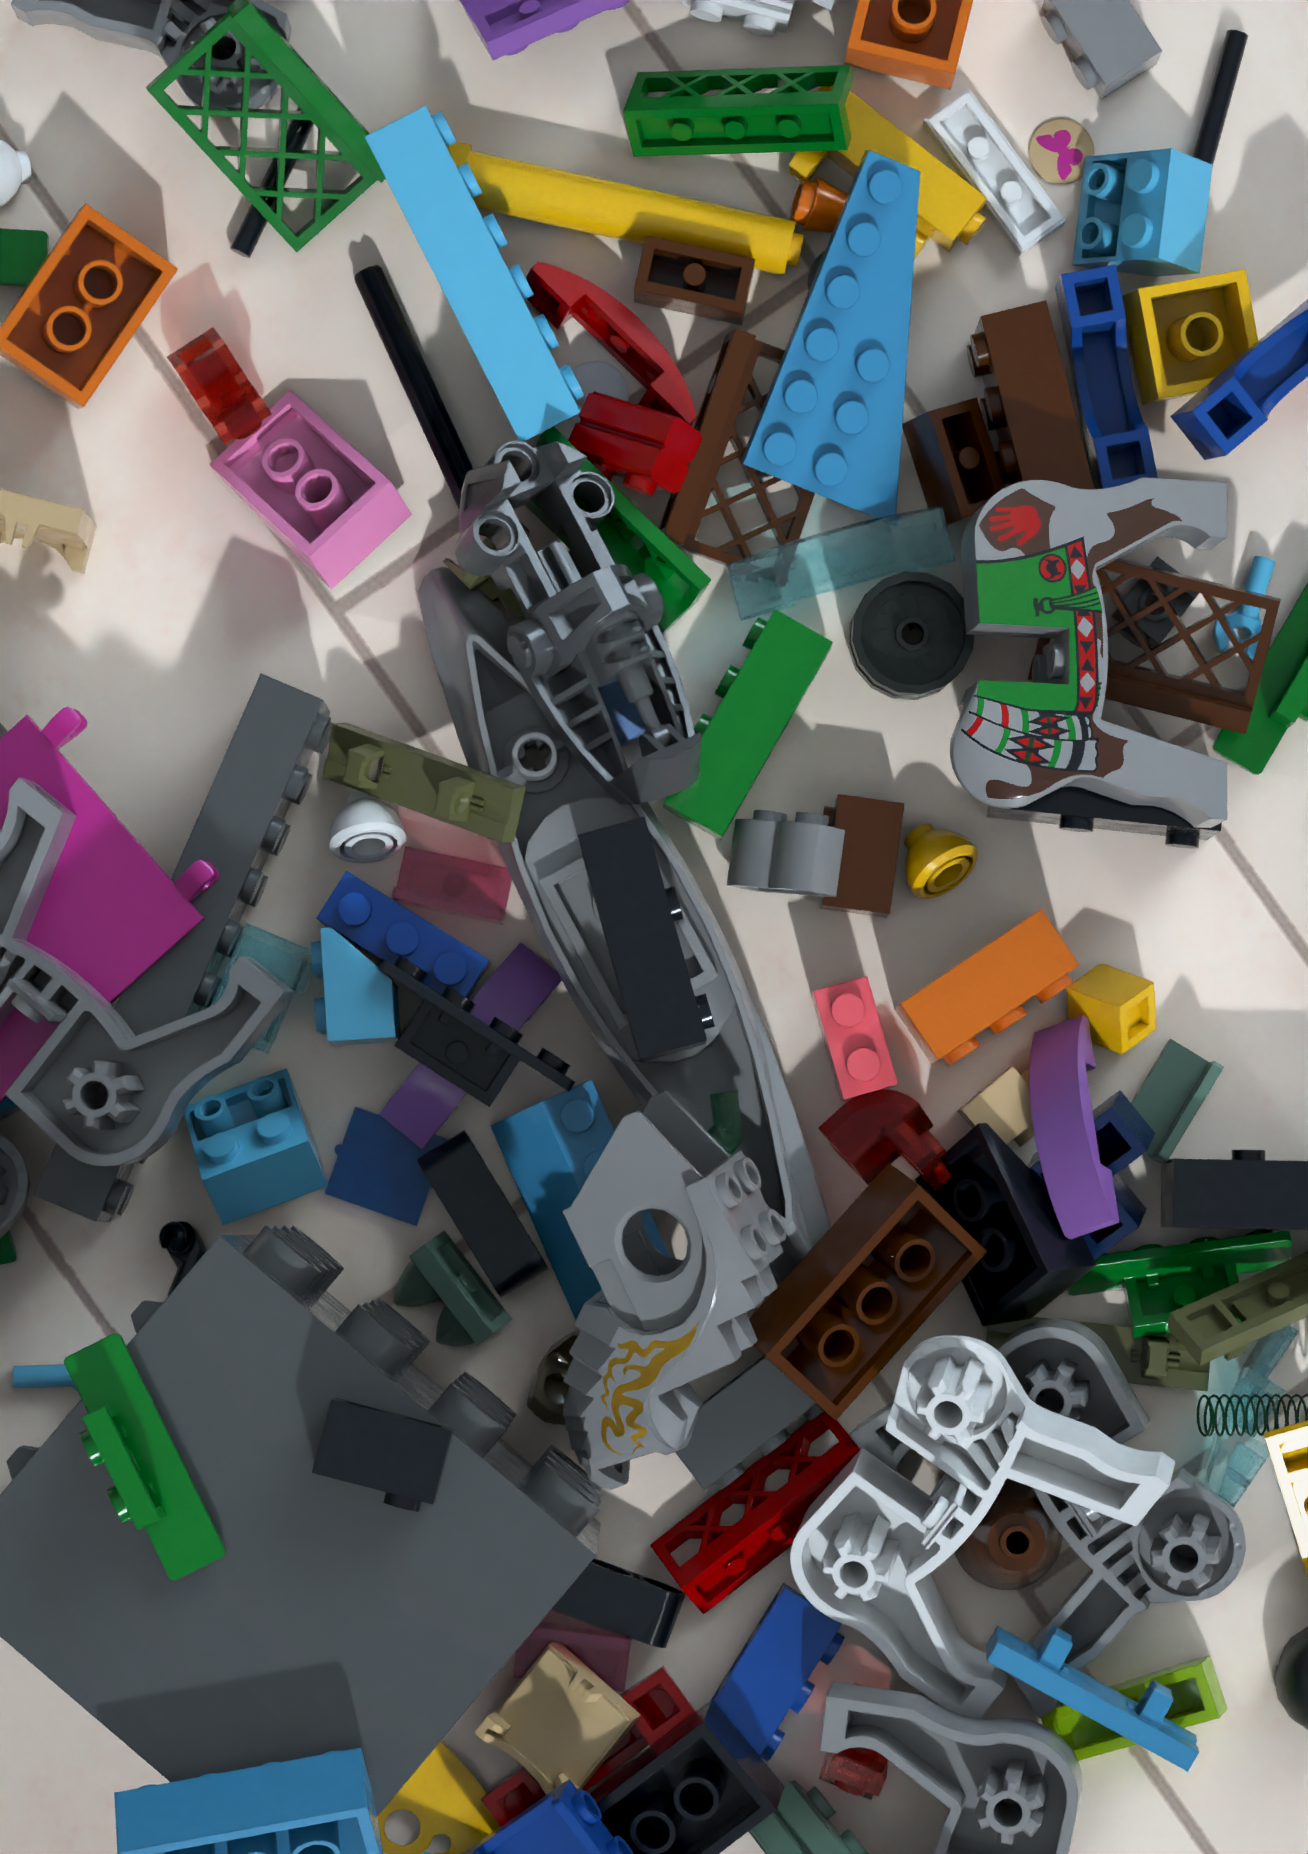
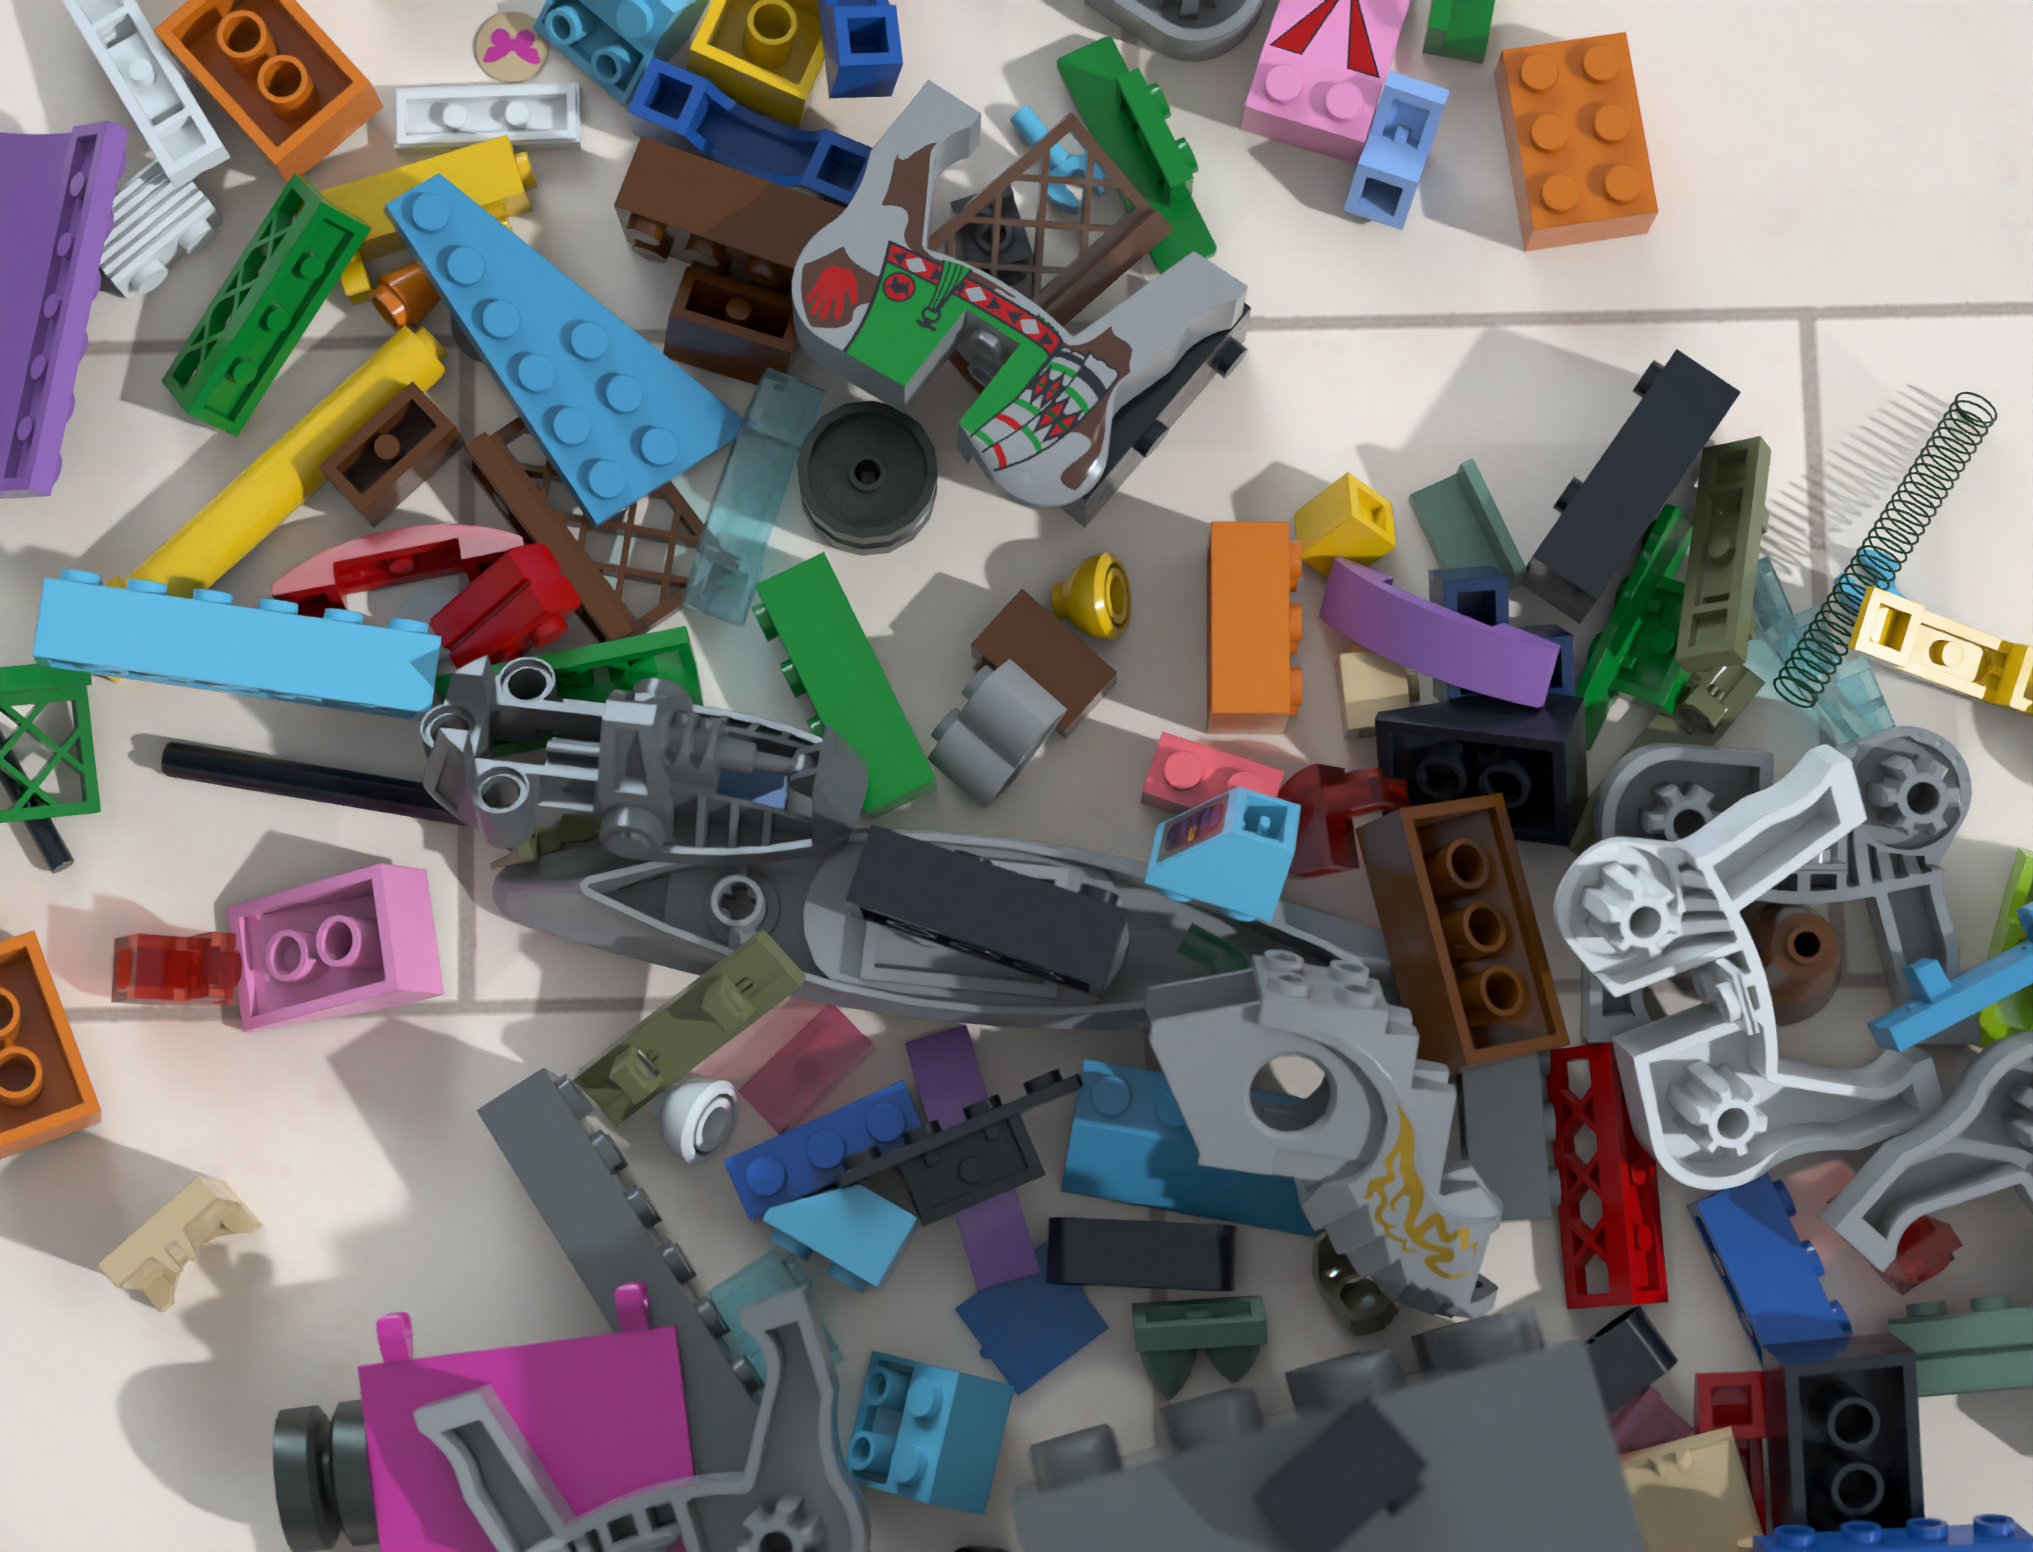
camera: 50 degrees left, 5 degrees down
(805, 1081) = (1227, 853): none -> medium azure slope

